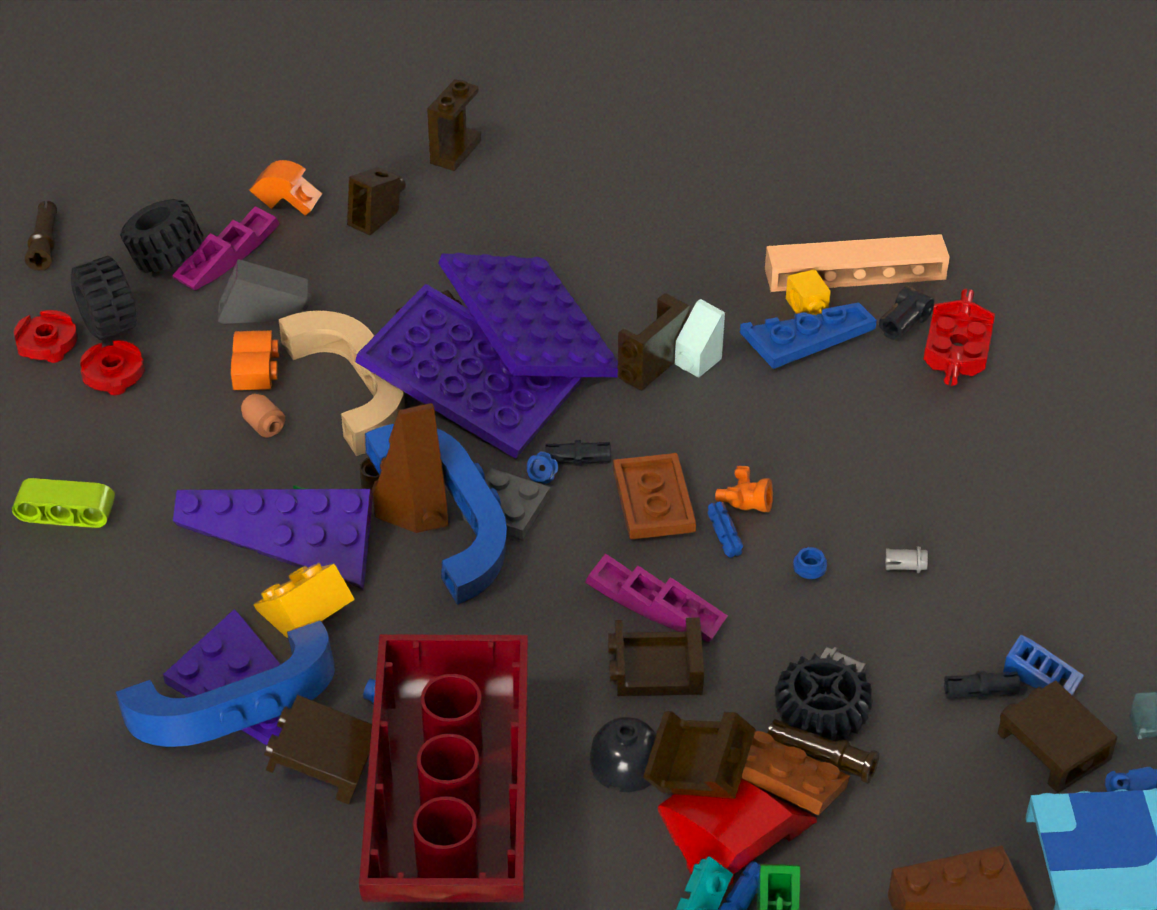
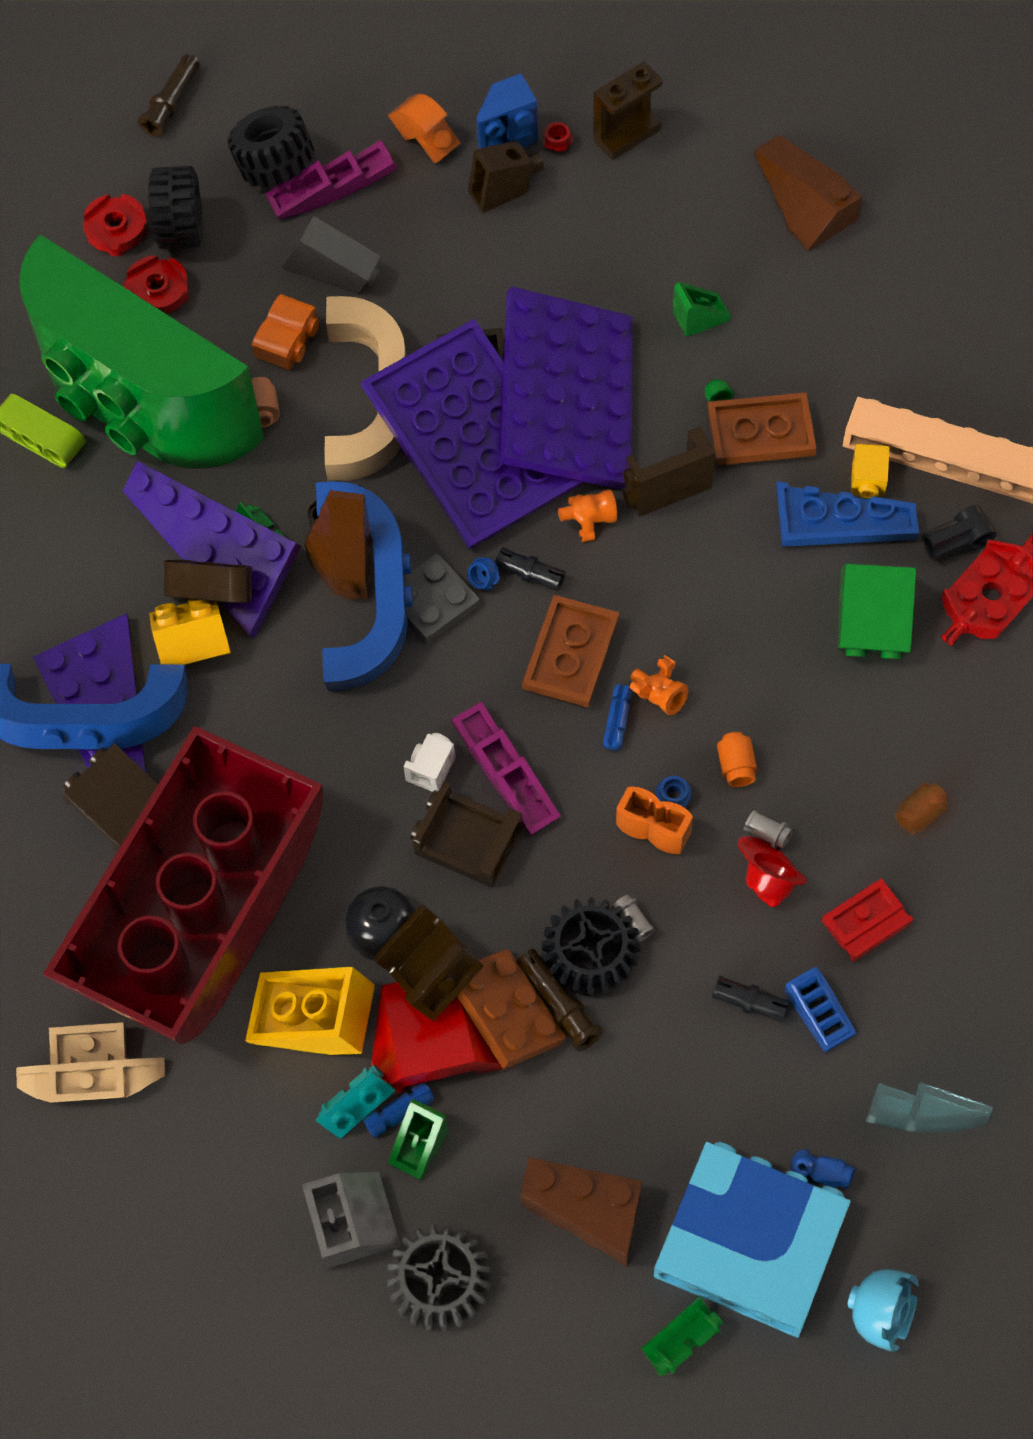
camera: 30 degrees right, 20 degrees up
(143, 406) = (136, 366): none -> green brick
(301, 549) = (208, 581): none -> dark brown beam
(358, 151) = (508, 114): none -> blue slope
(402, 165) = (557, 131): none -> red plate
(589, 618) = (430, 762): none -> white brick
(593, 239) = (698, 308): none -> green slope
(603, 393) = (590, 510): none -> orange piece
(610, 846) = (312, 1010): none -> yellow slope
(636, 142) = (810, 194): none -> reddish brown wedge
(650, 286) = (718, 390): none -> green hinge
(700, 339) = (718, 489): light aqua slope -> none
(712, 284) = (761, 428): none -> dark orange plate
(813, 582) = (661, 822): none -> orange brick
(846, 519) = (737, 759): none -> orange brick
(881, 376) = (876, 610): none -> green slope
(935, 592) = (769, 871): none -> red piece
(1016, 498) = (922, 808): none -> clear orange brick
(1032, 591) = (867, 920): none -> red plate
(1059, 734) = (782, 1086): dark brown panel -> none

